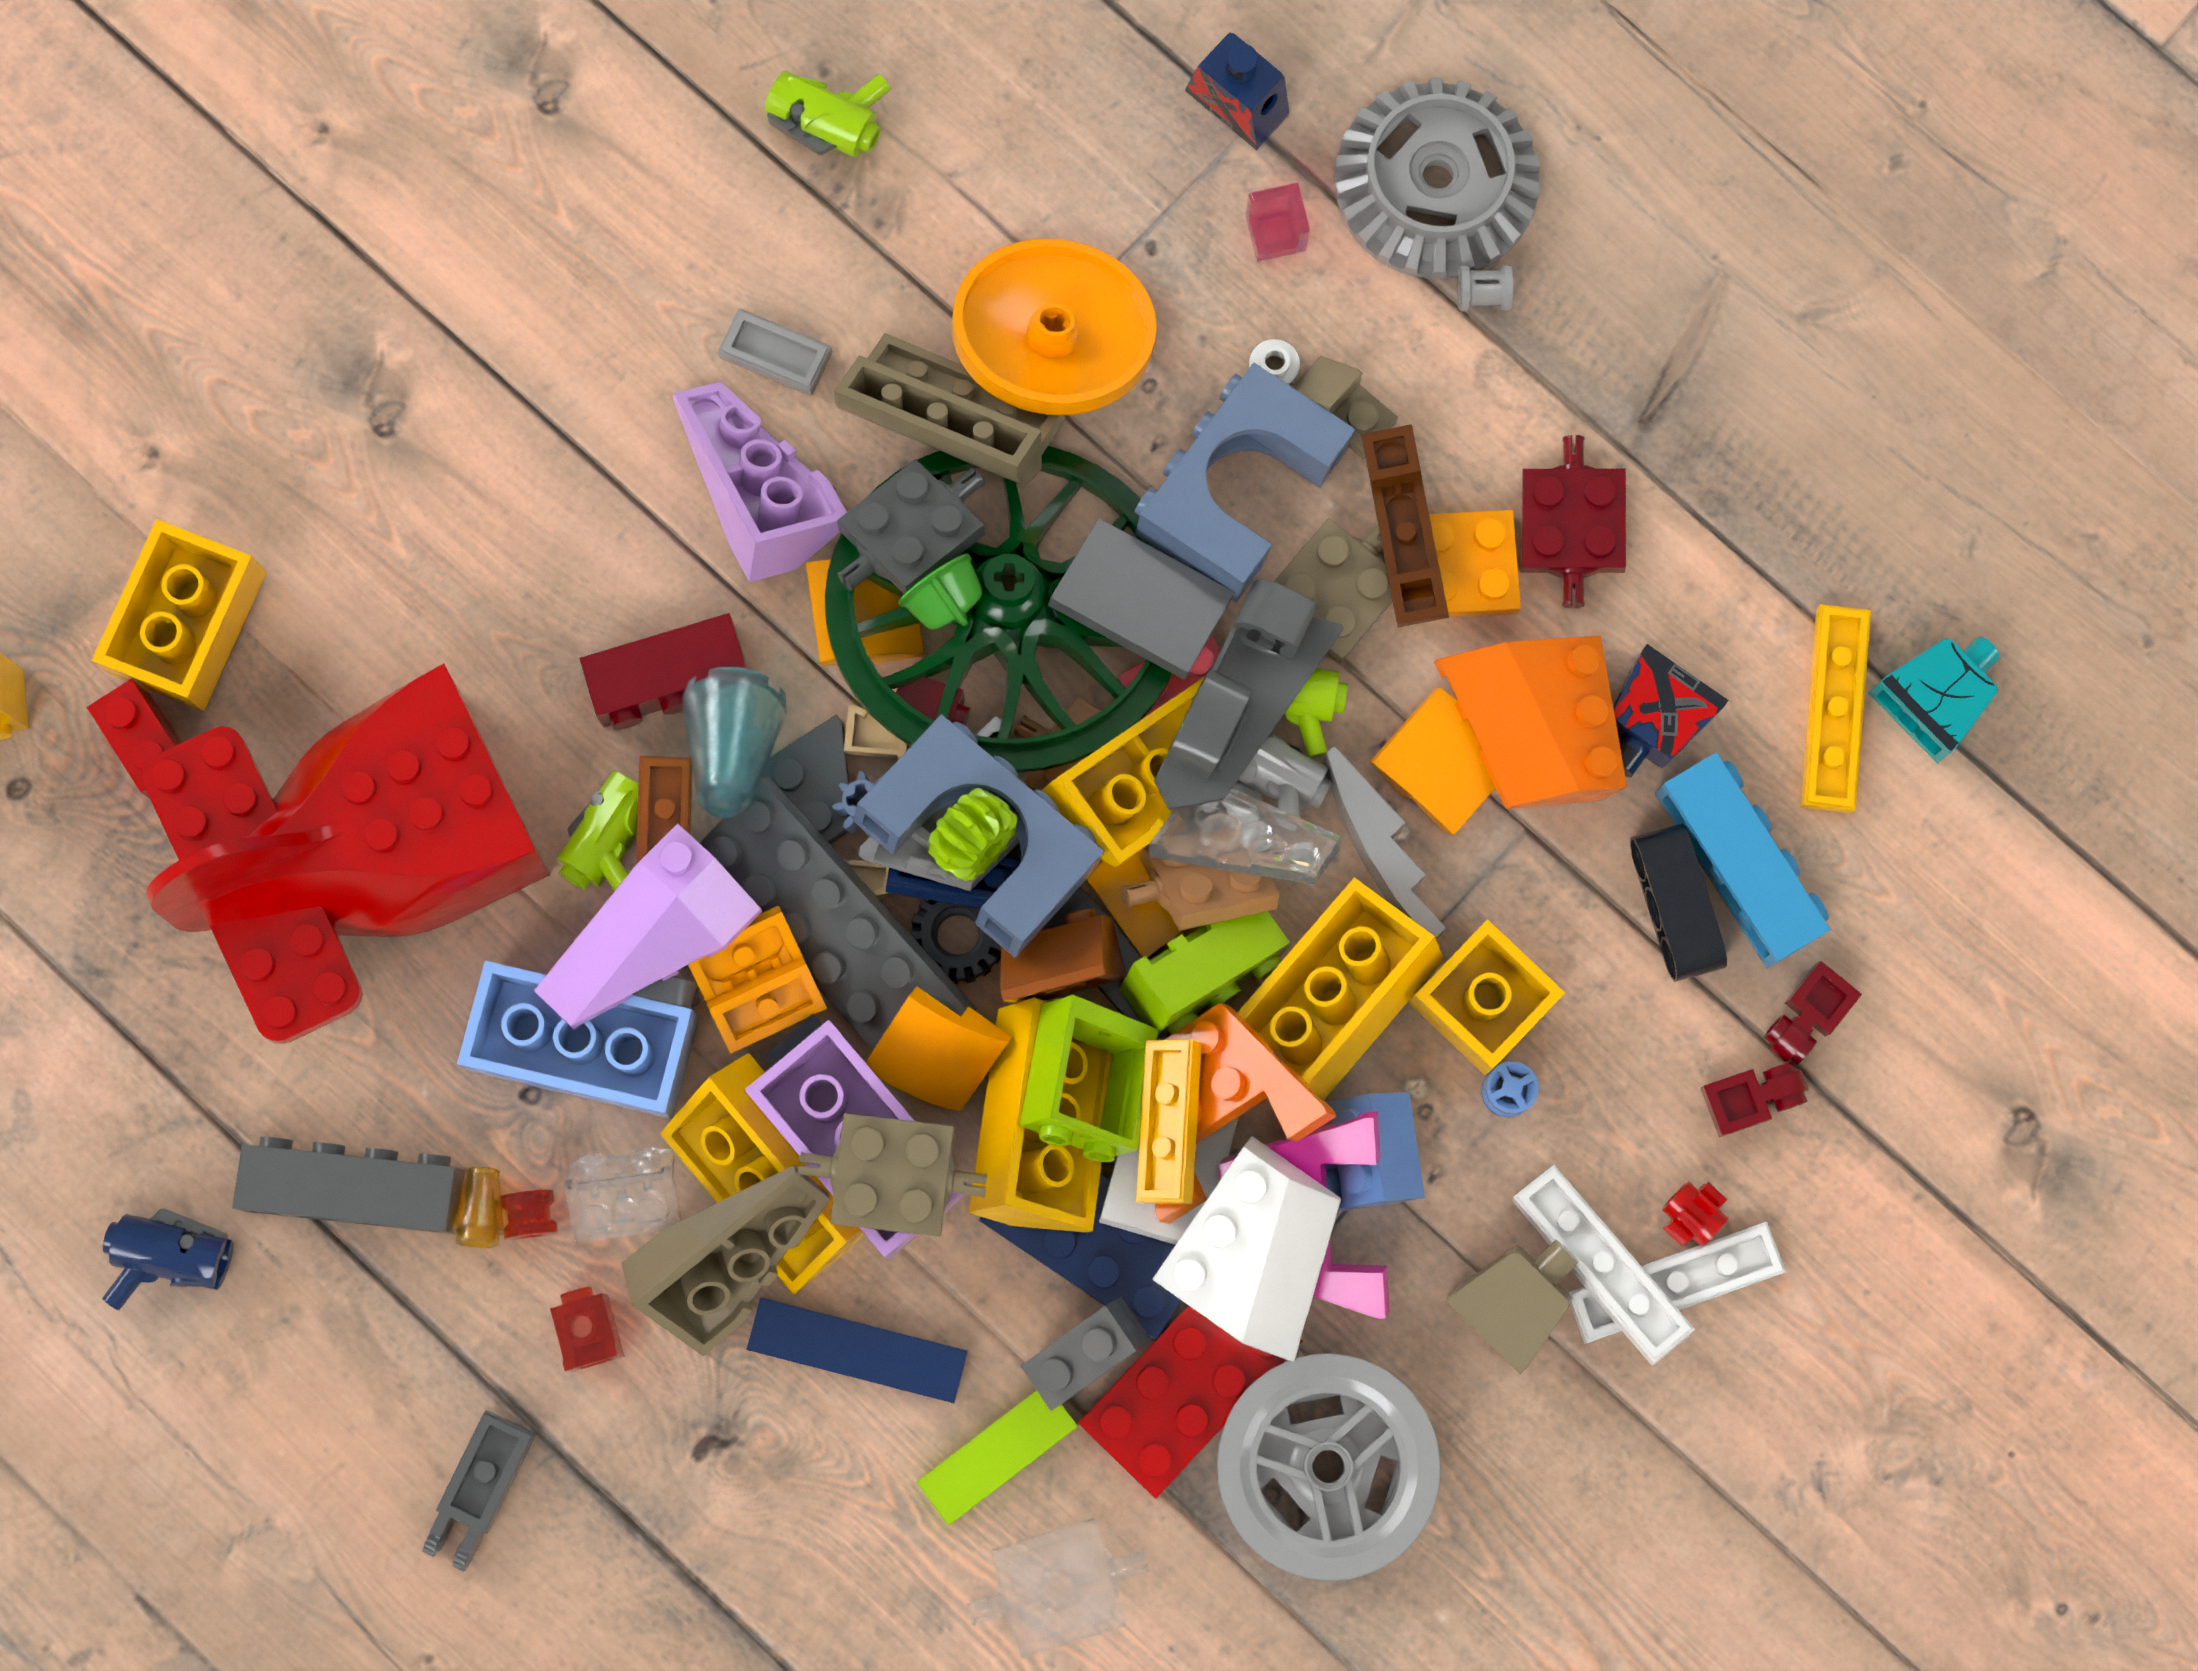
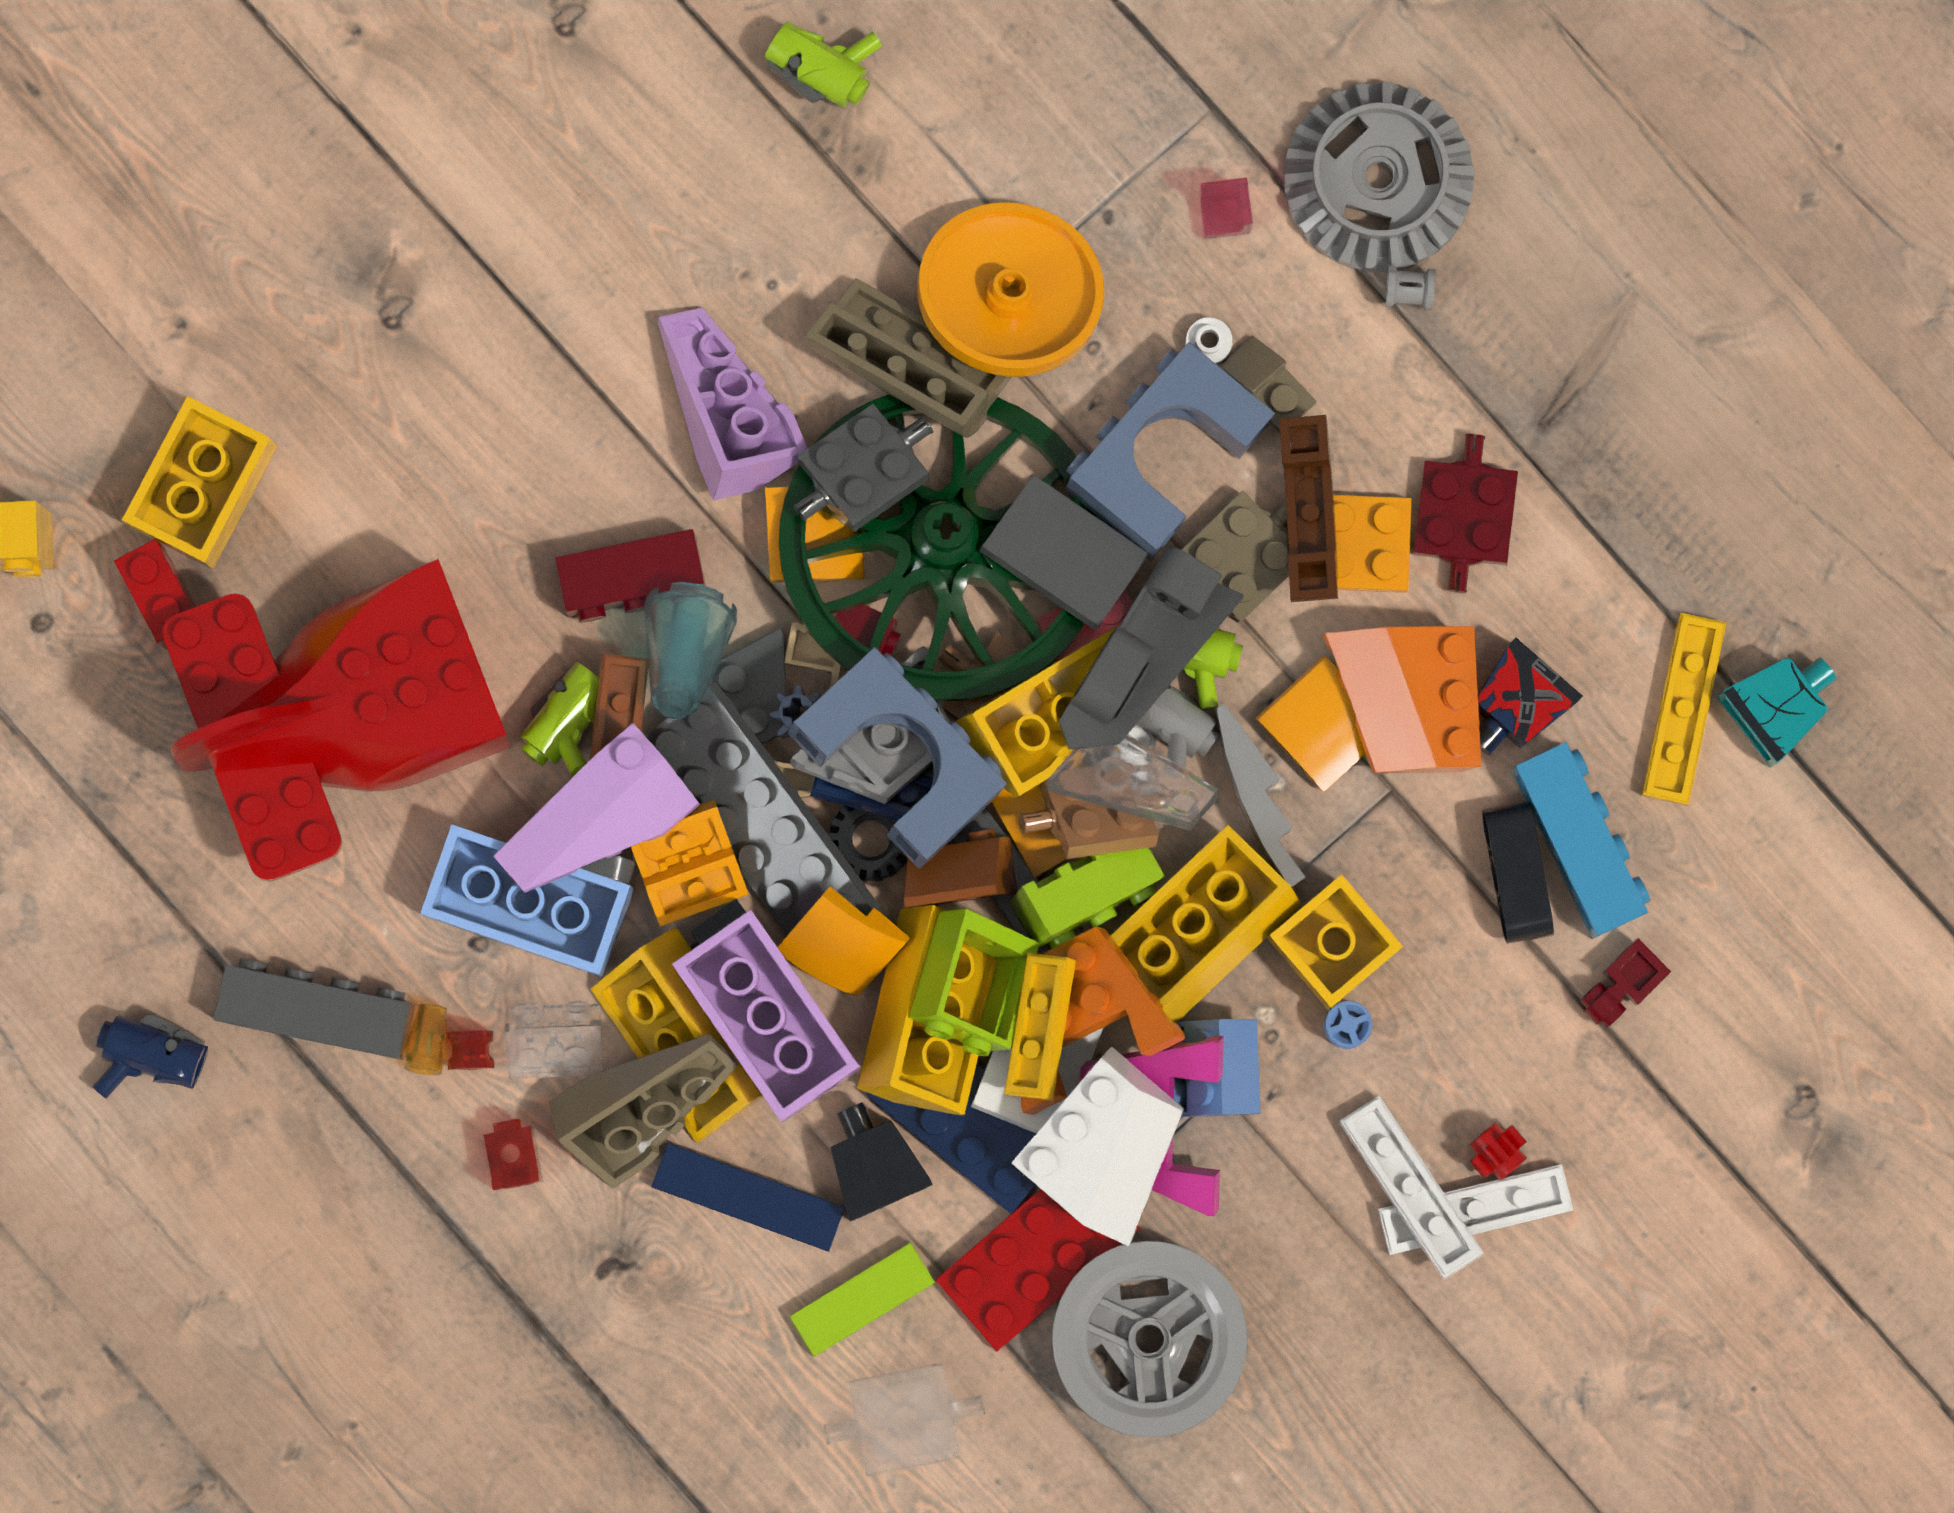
camera: 10 degrees right, 5 degrees up
(479, 1485) = (410, 1280): dark grey hinge -> none
(775, 352) = (754, 284): light grey tile -> none
(892, 1174) = (794, 1051): dark tan plate -> none
(944, 594) = (888, 537): bright green piece -> none
(972, 834) = (892, 758): lime gear -> none
(996, 1298) = (874, 1164): none -> black torso
(1086, 1353) = (948, 1220): dark grey brick -> none
(1236, 85) = (1205, 80): dark blue torso -> none
(1517, 1301) = (1331, 1212): dark tan torso -> none
(1741, 1102) = (1551, 1056): dark red plate -> none

